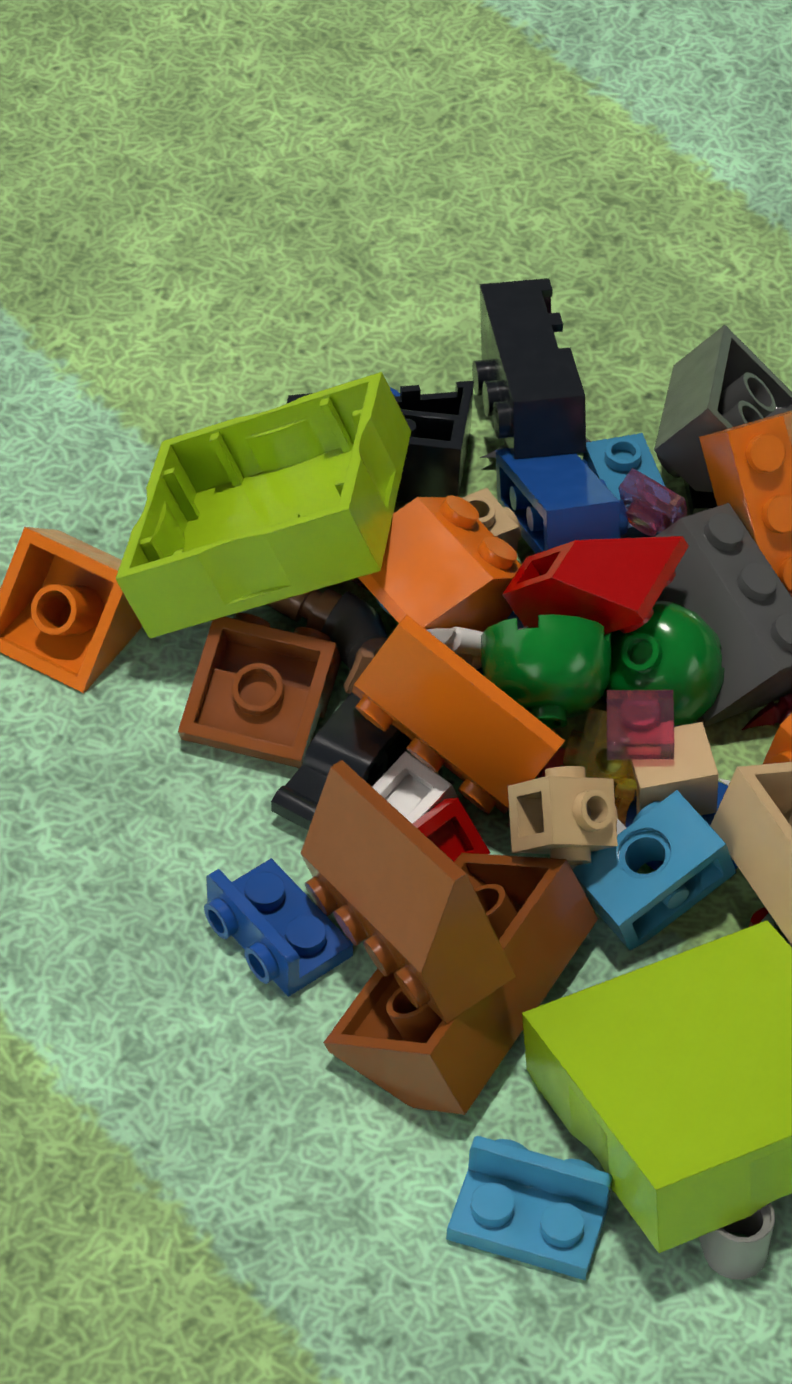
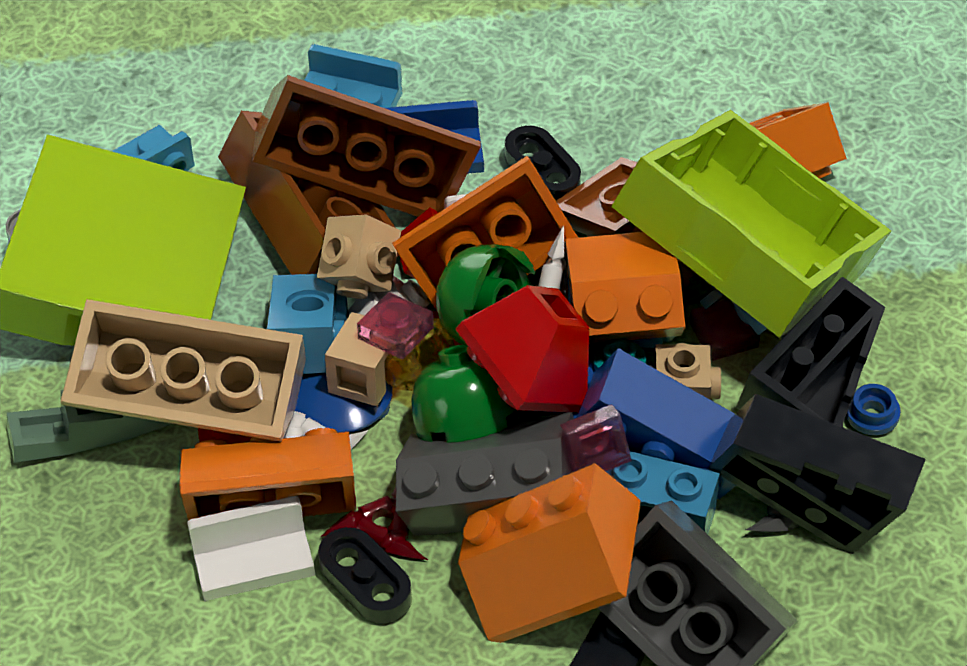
camera: 125 degrees right, 0 degrees up
(232, 805) = (549, 158): none -> black plate
(247, 1059) = (356, 75): none -> dark azure bracket

